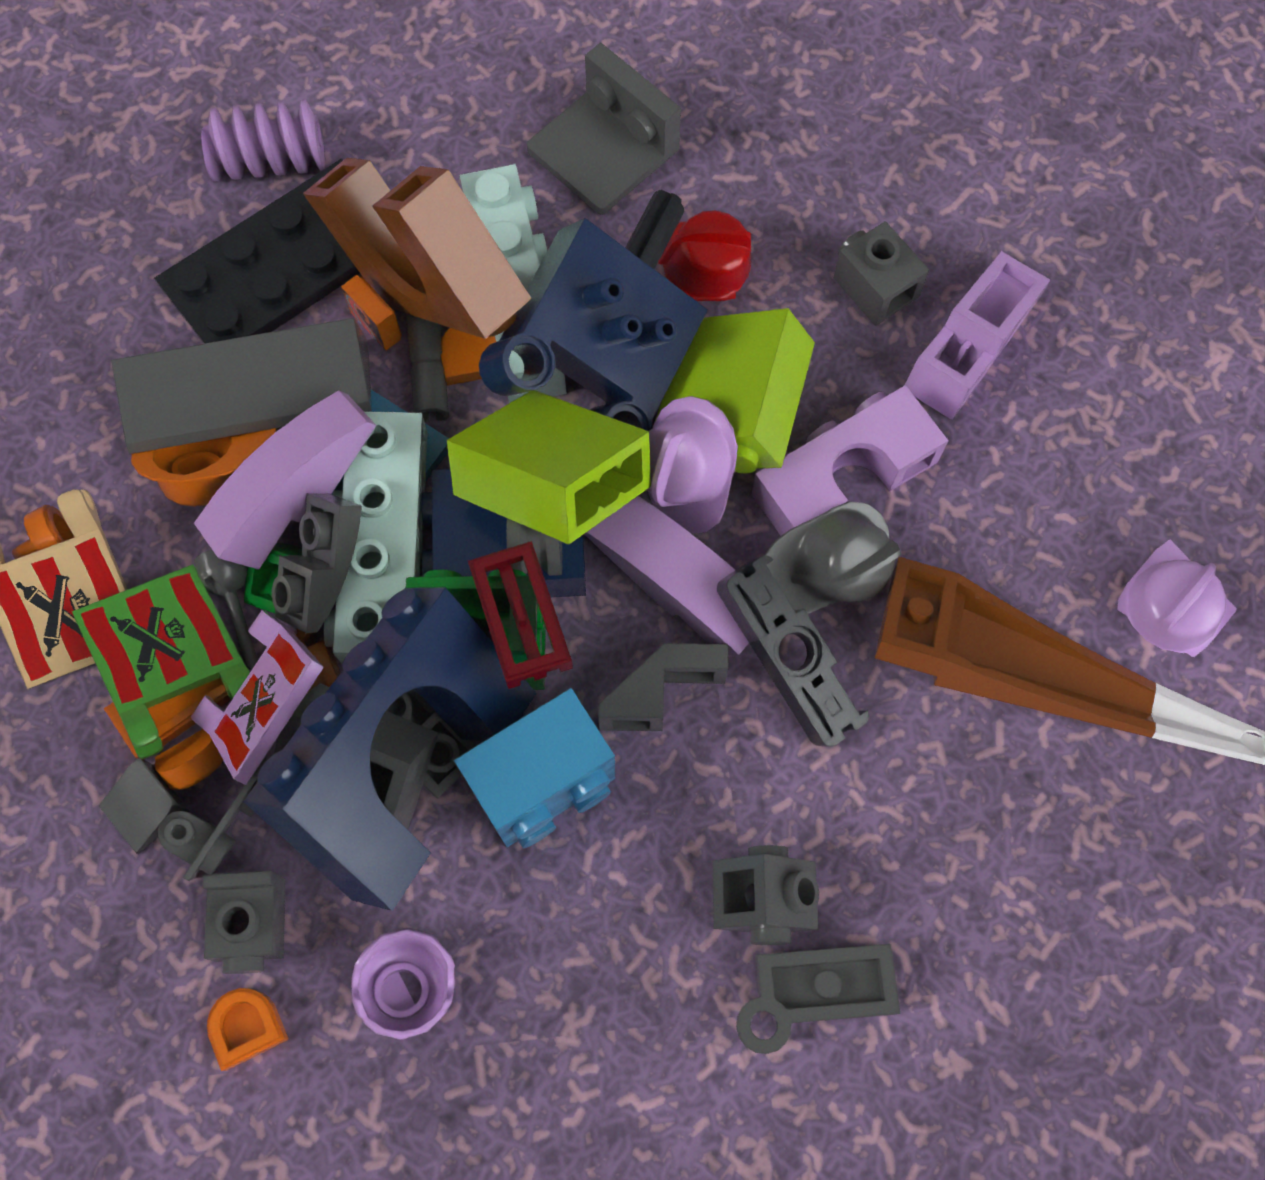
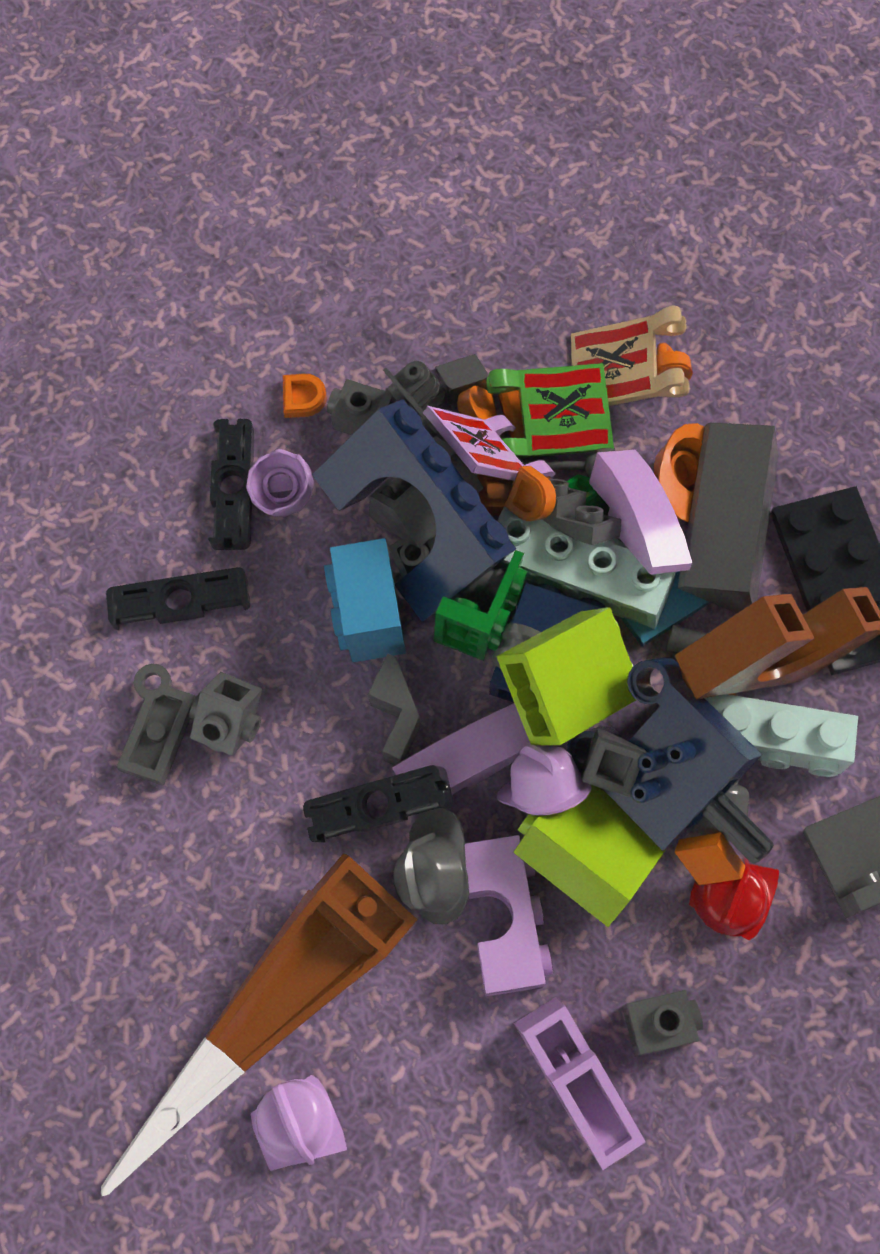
camera: 115 degrees right, 0 degrees up
(315, 609) = (531, 495): none -> orange tile
(379, 1079) = (233, 510): none -> black piece
(536, 665) = (462, 627): dark red tile -> none
(635, 387) = (611, 763): none -> dark grey slope
(648, 1098) = (149, 598): none -> black piece
(690, 264) = (710, 858): none -> orange tile

